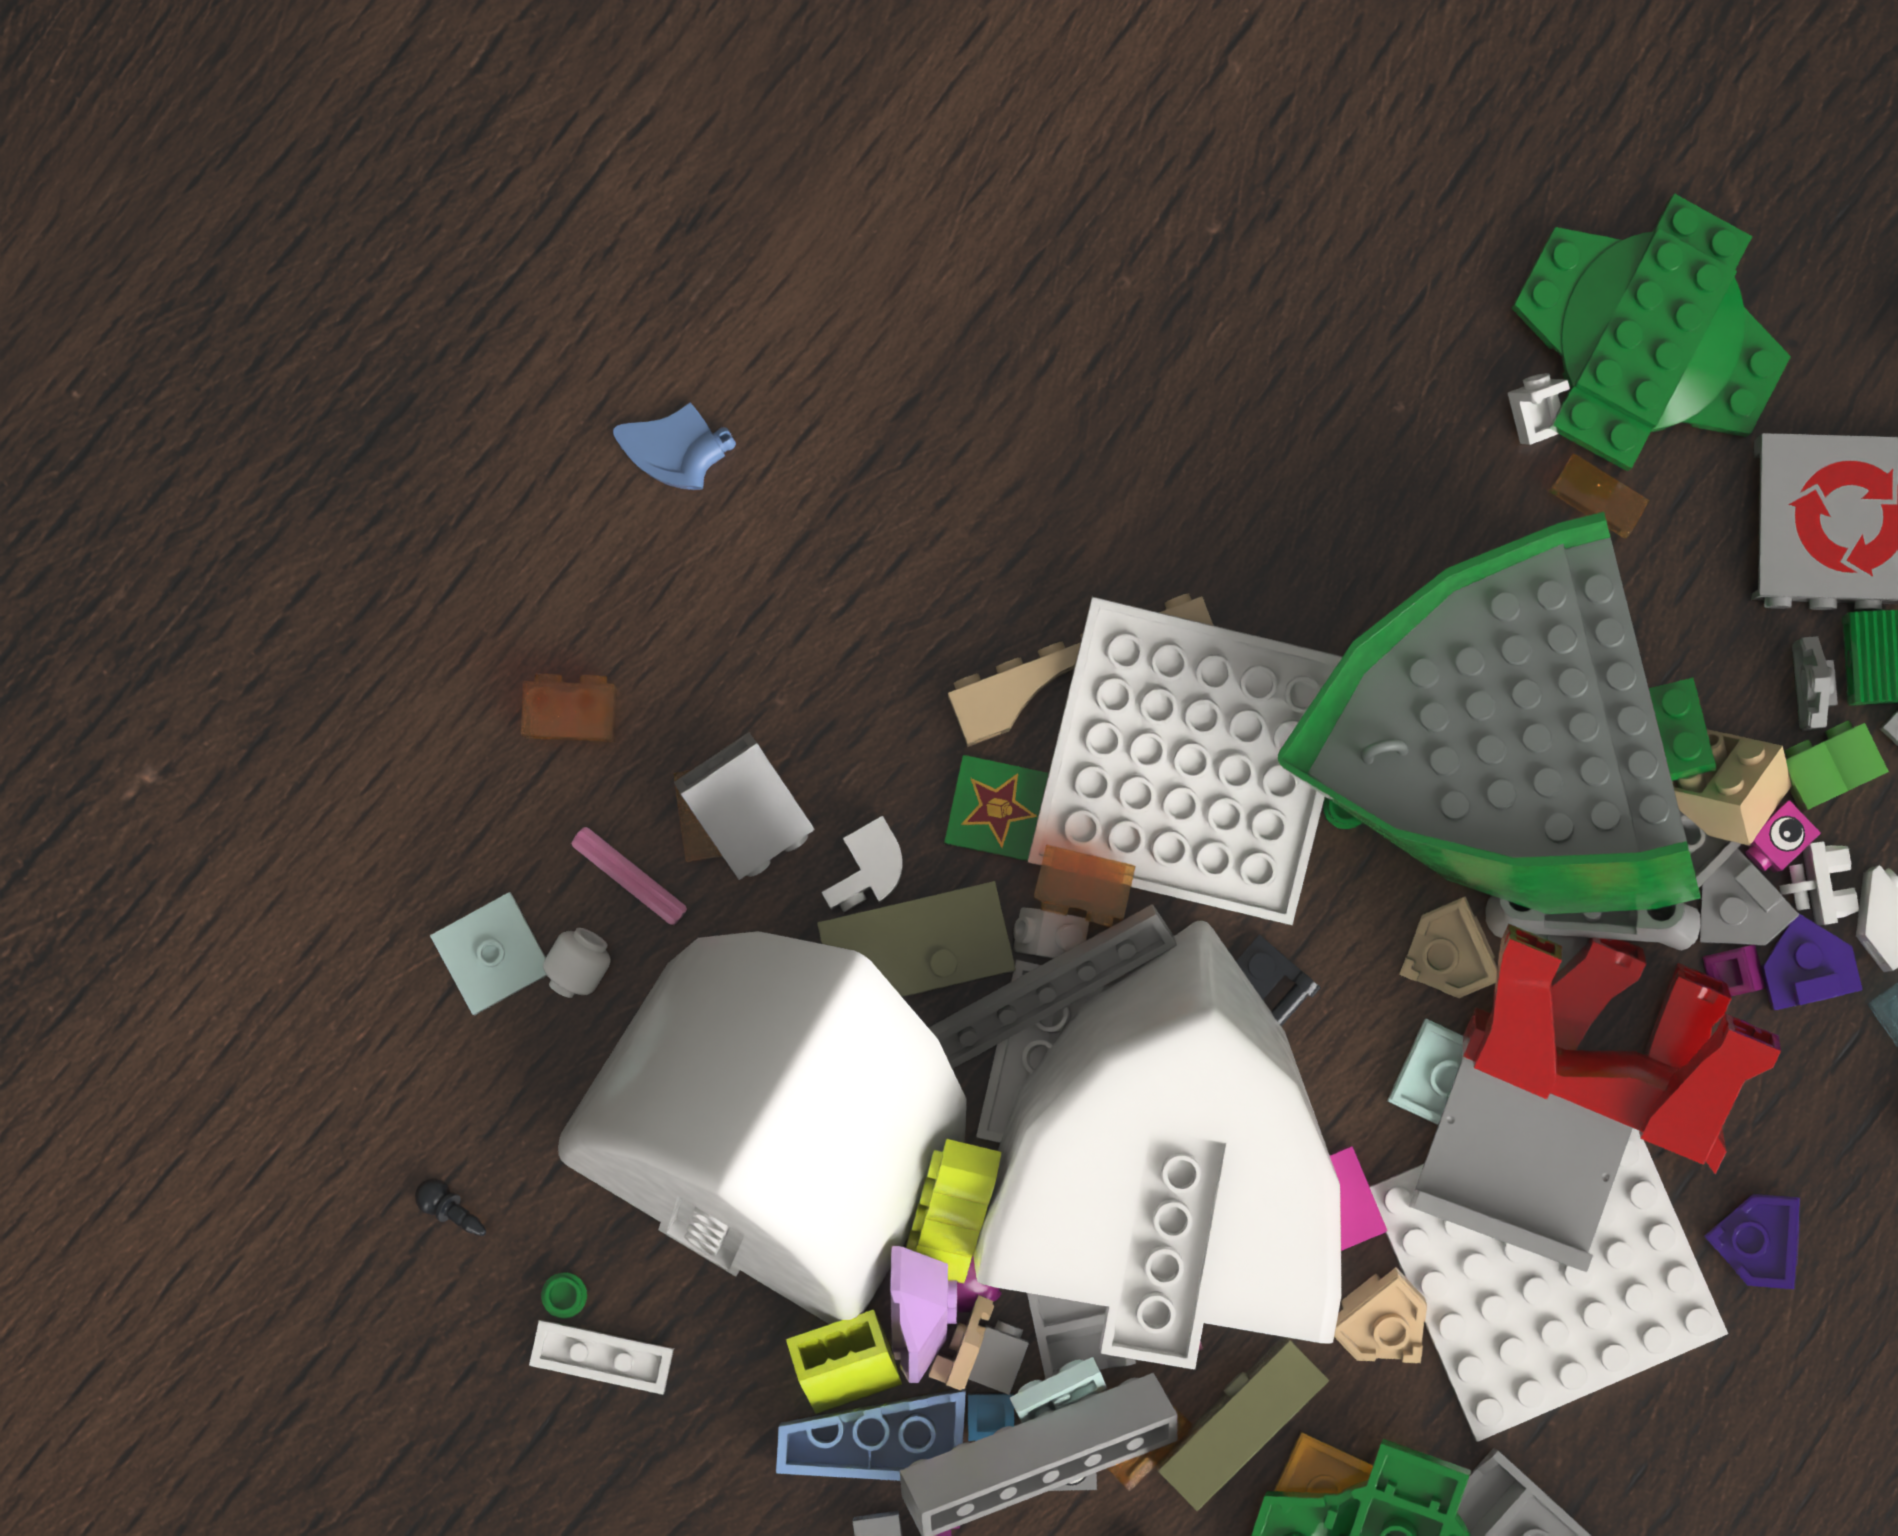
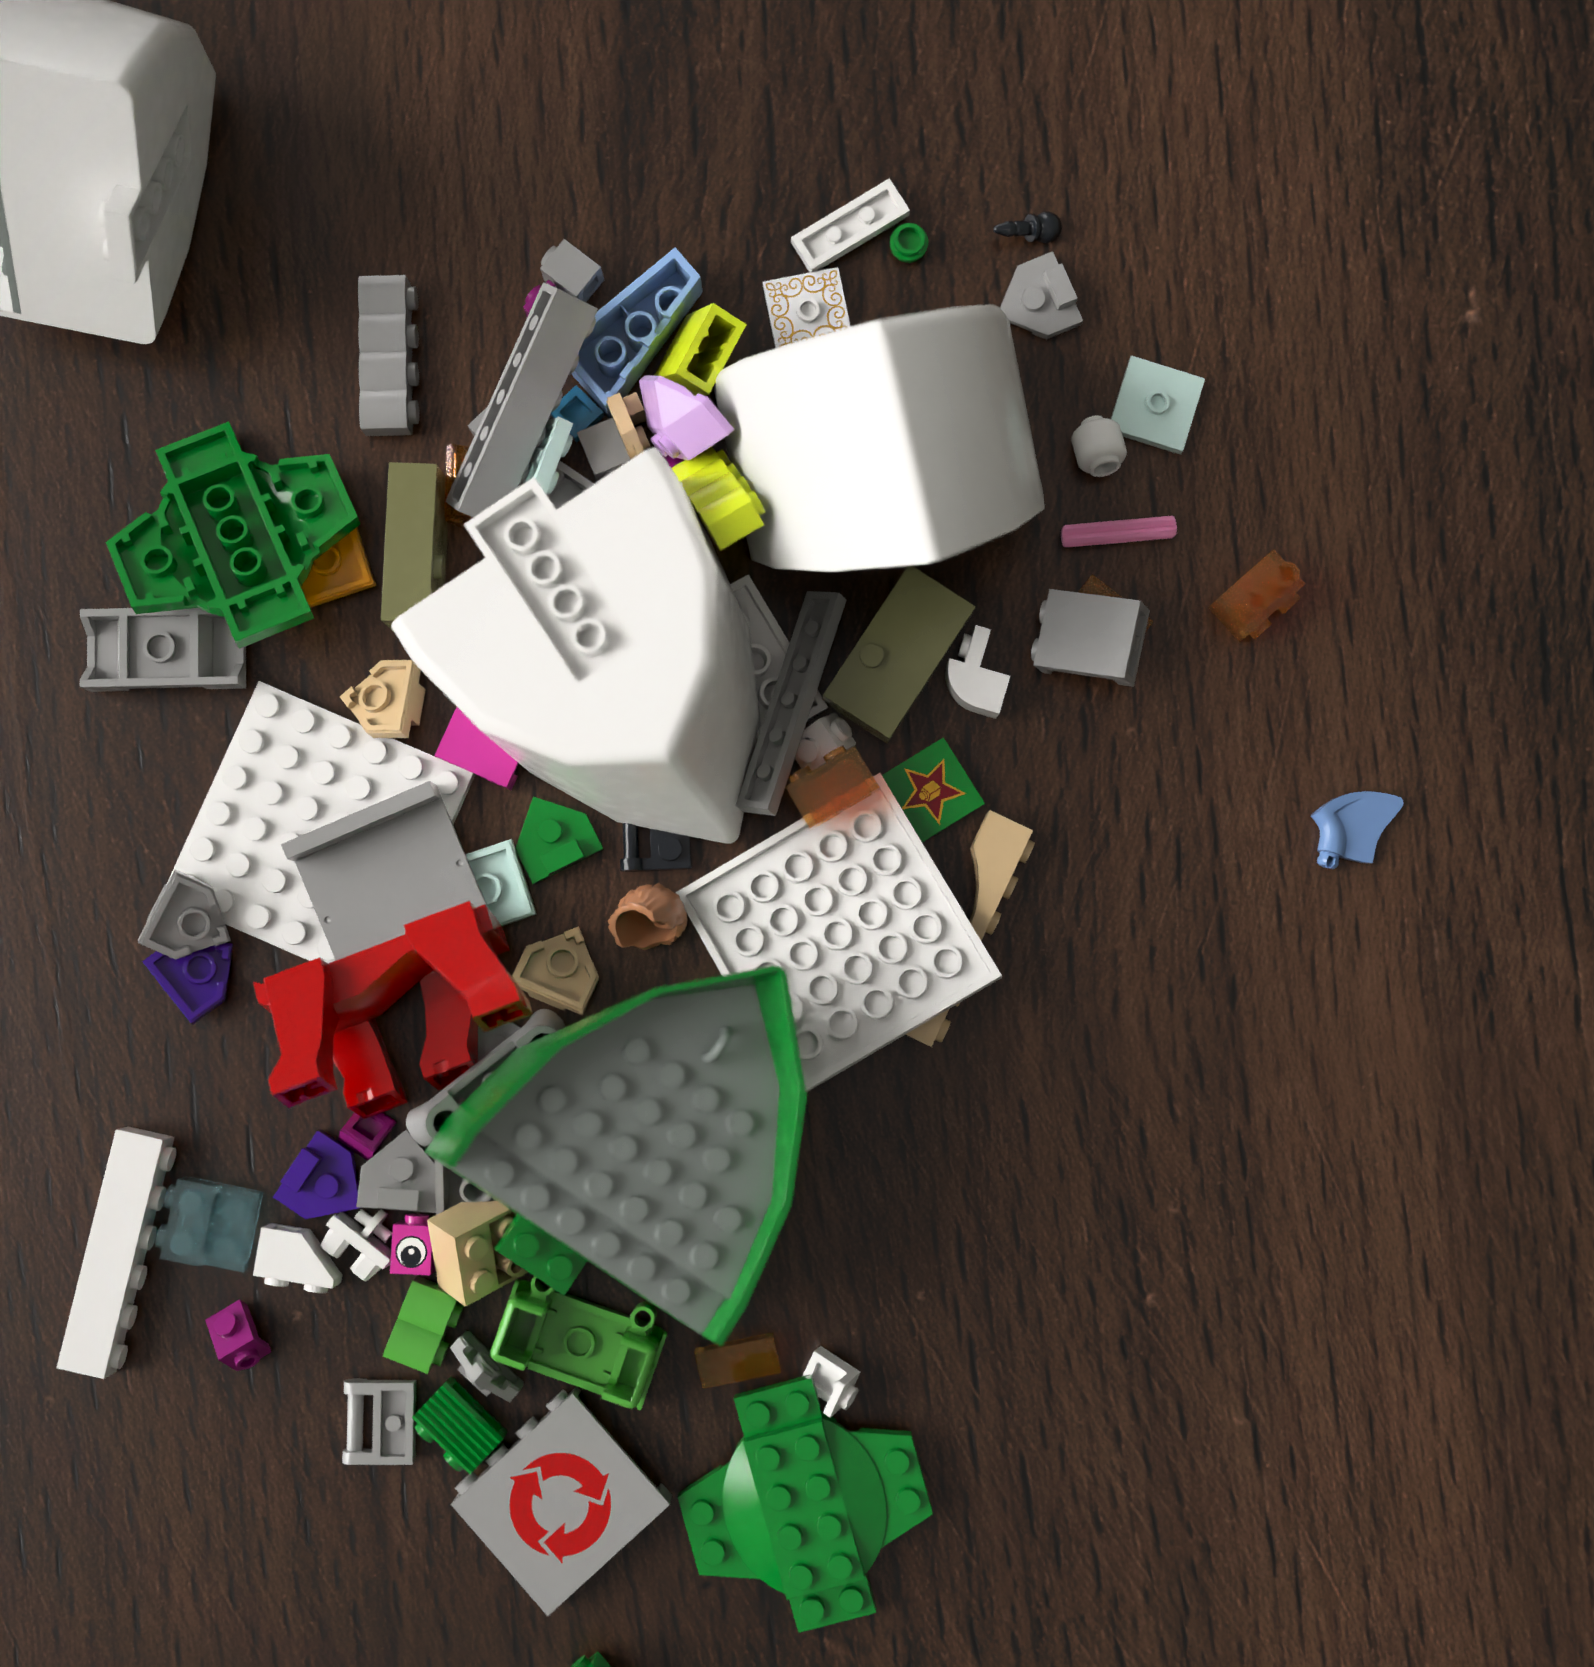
camera: 135 degrees right, 0 degrees up
(500, 1138) = (1042, 298): none -> light grey plate
(709, 1316) = (805, 306): none -> white plate
(1335, 924) = (648, 917): none -> nougat hair
(1350, 1067) = (554, 839): none -> green plate
(1715, 630) = (580, 1342): none -> bright green container
(1725, 1291) = (184, 918): none -> light grey plate

